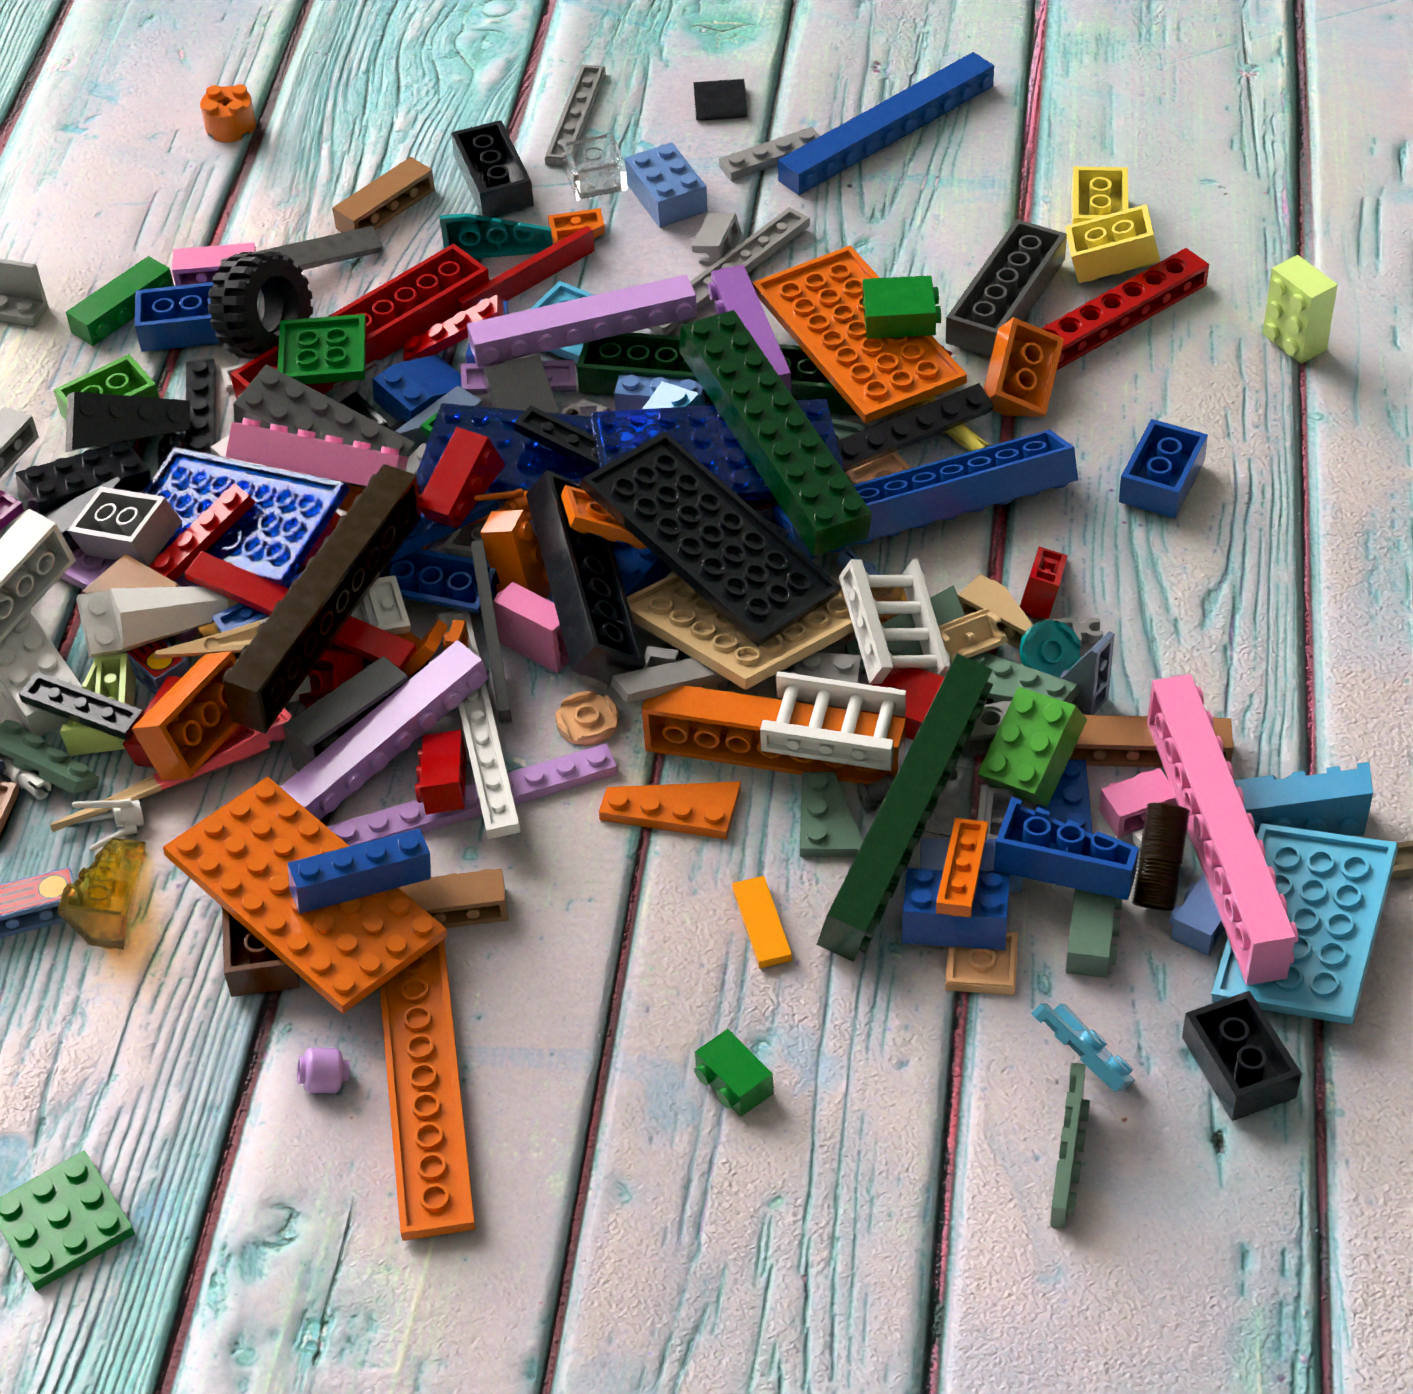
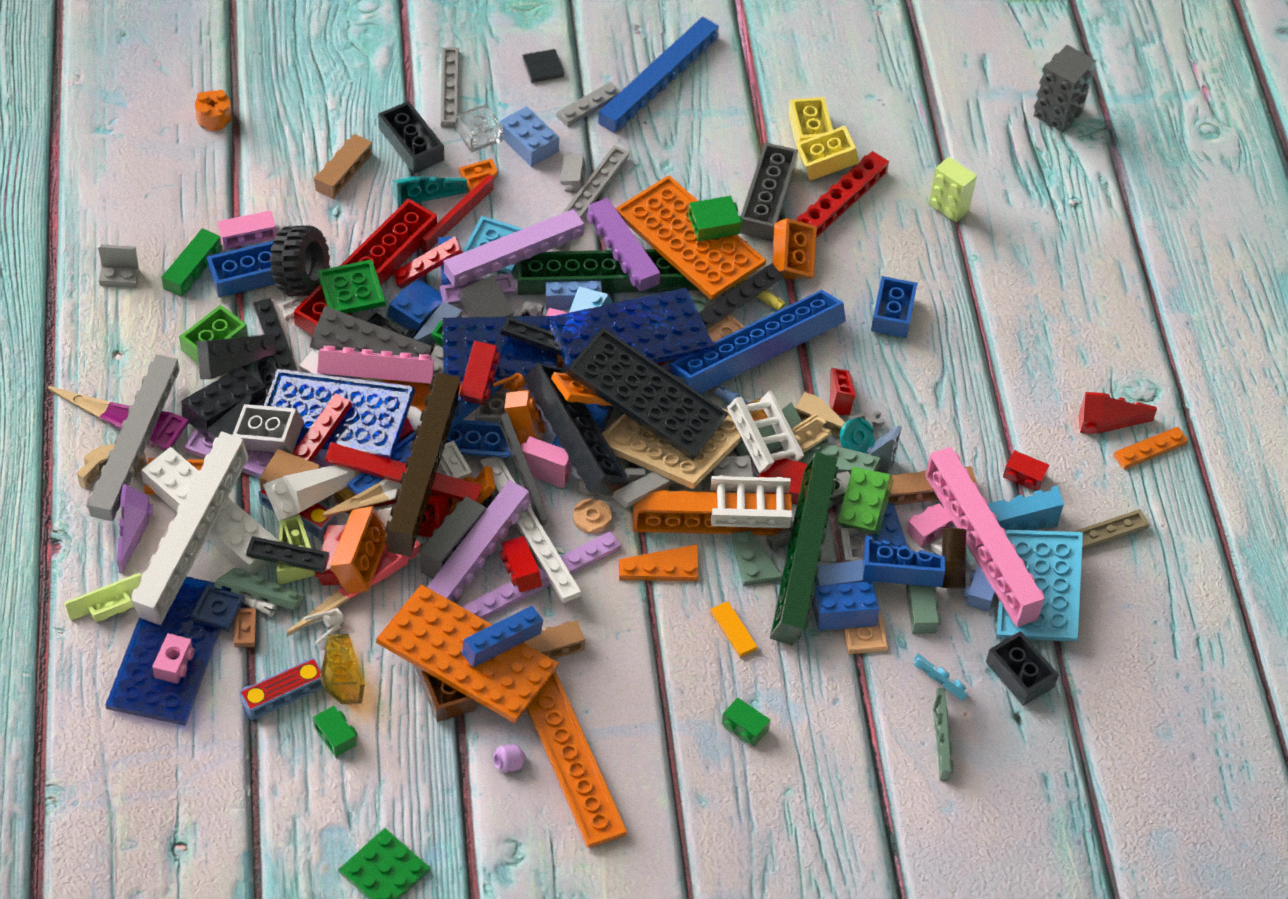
camera: 20 degrees left, 5 degrees up
(63, 985) = (335, 731): none -> green brick
(331, 248) = (308, 214): flat silver tile -> none
(457, 632) = (502, 478): orange plate -> none
(775, 433) = (665, 317): dark green brick -> none
(962, 867) = (847, 582): orange plate -> none
(1326, 738) = (1026, 471): none -> red brick

